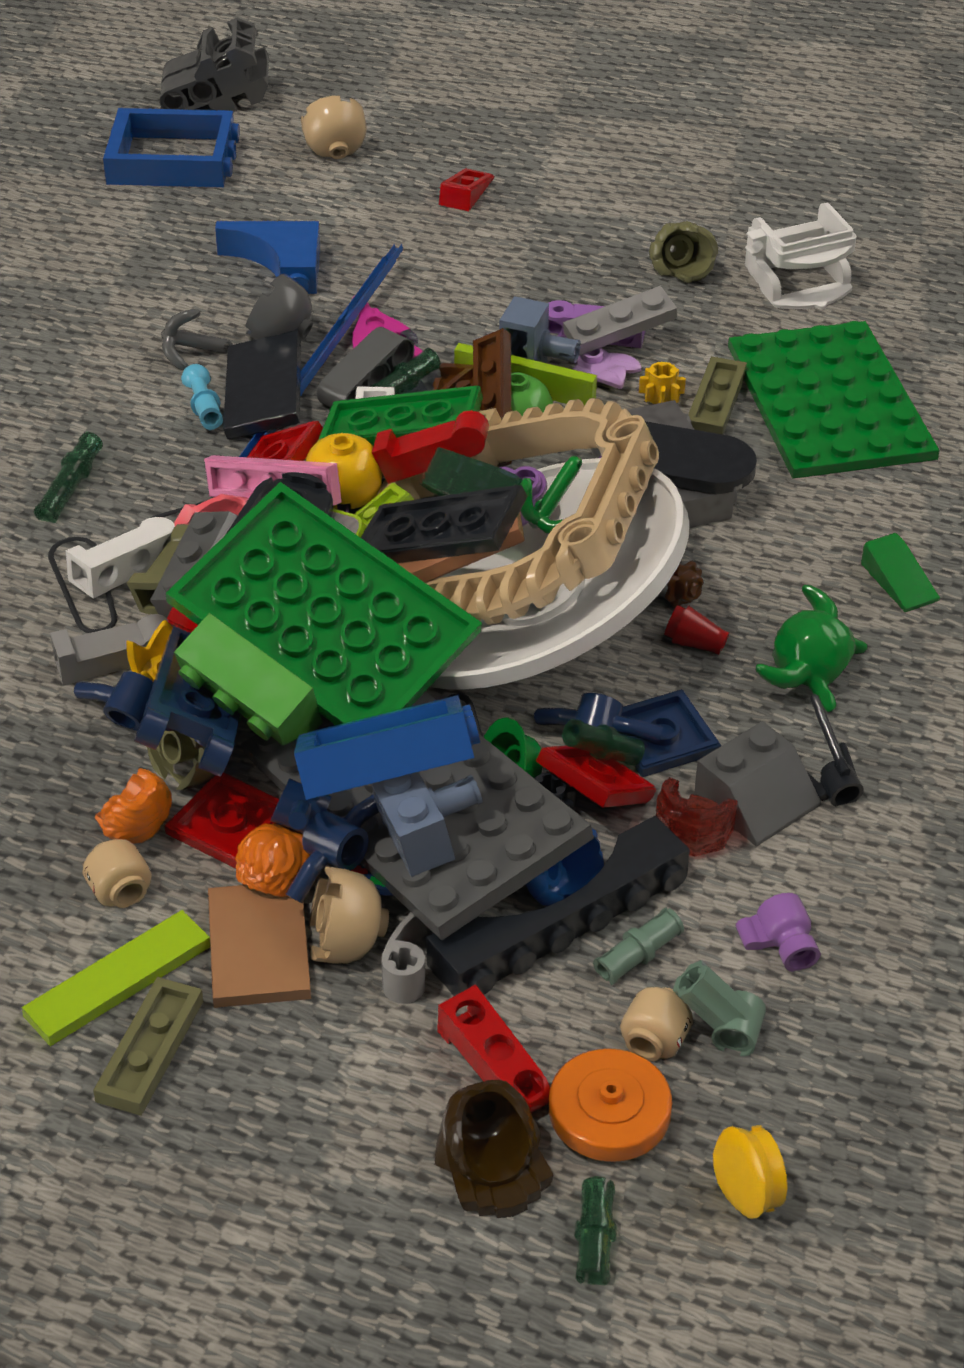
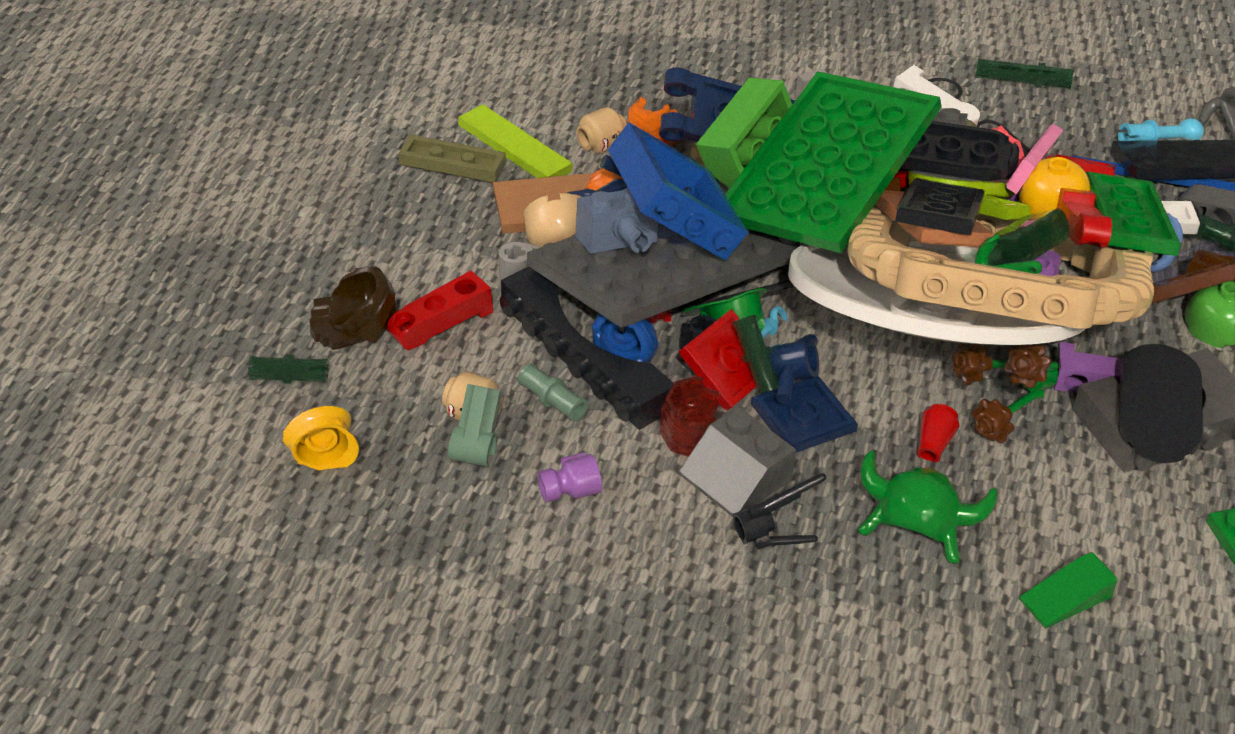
camera: 85 degrees right, 0 degrees up
(610, 1104) = (394, 372): orange wheel -> none

